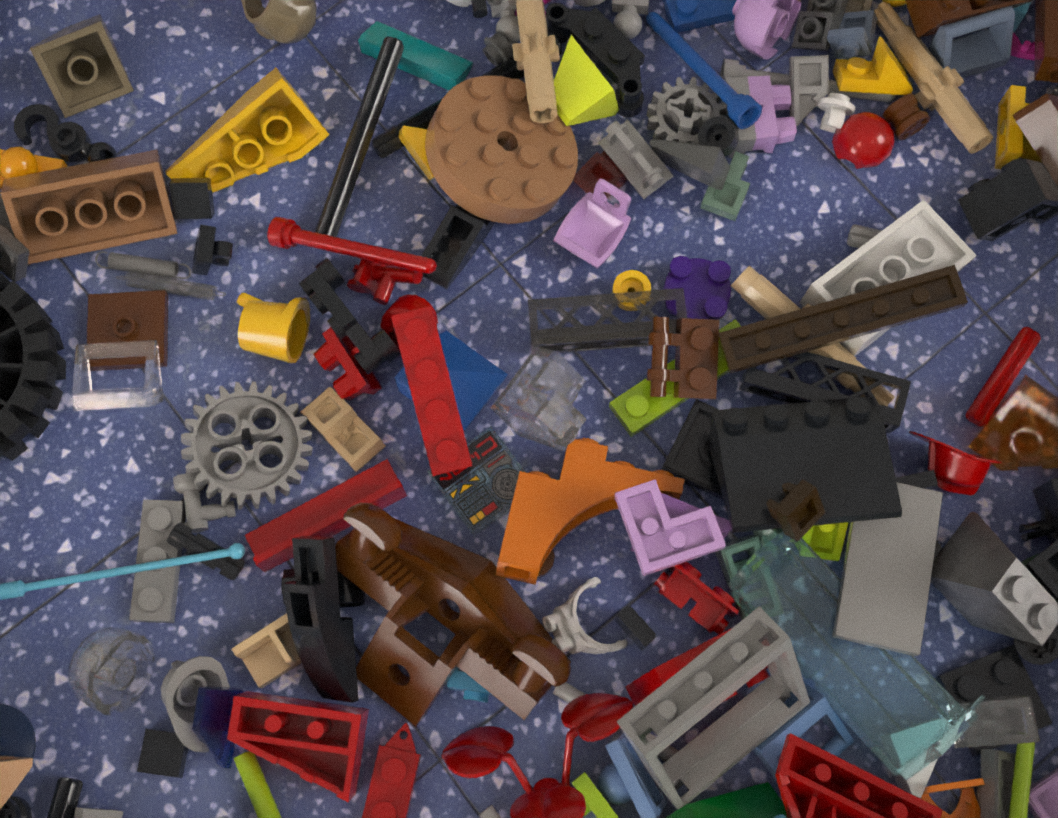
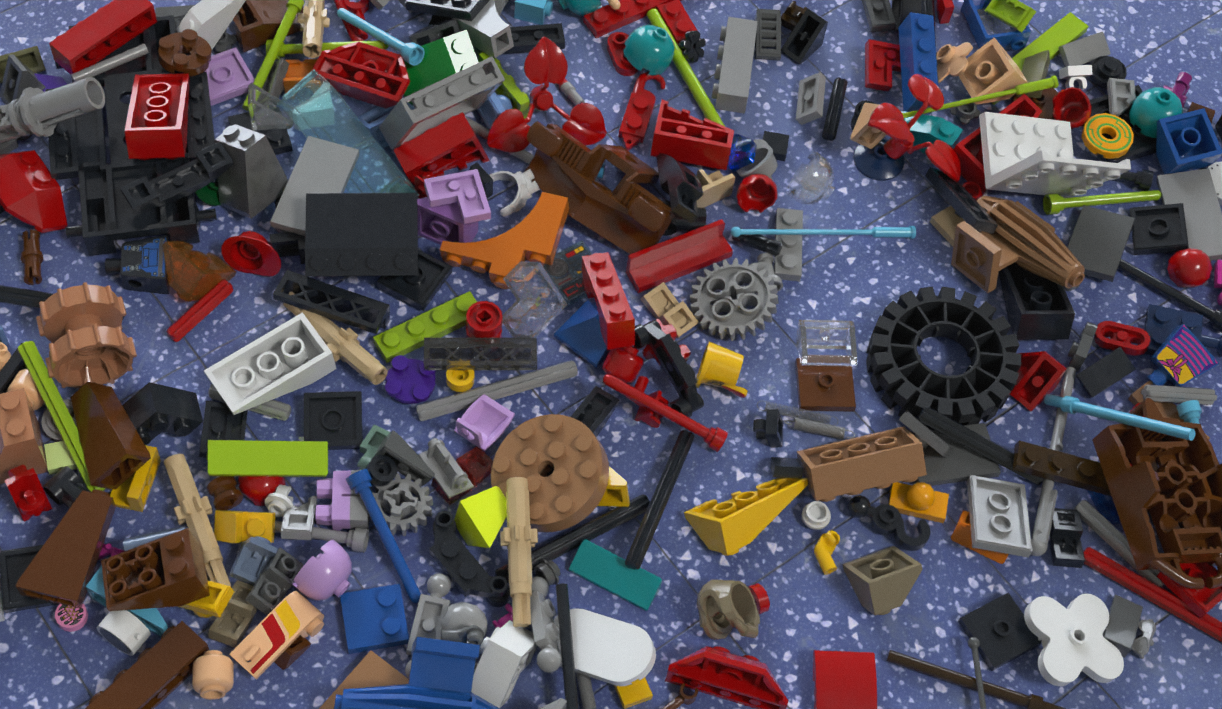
camera: 175 degrees right, 15 degrees down
(155, 102) = (824, 550): none -> yellow arm
(161, 139) = (816, 515): none -> white plate
(199, 639) = (756, 193): none -> red hair
(242, 32) = (761, 597): none -> red tile
(580, 285) = (497, 390): none -> light grey axle
(607, 366) = (484, 320): none -> red wheel
(694, 358) = (421, 320): reddish brown plate -> none
(790, 225) = (334, 419): none -> black plate
(798, 509) = (373, 190): dark brown tile -> none
(842, 319) = (316, 319): dark brown plate -> none
(865, 149) = (267, 458): none -> lime panel
(934, 184) = (221, 425): none -> black plate

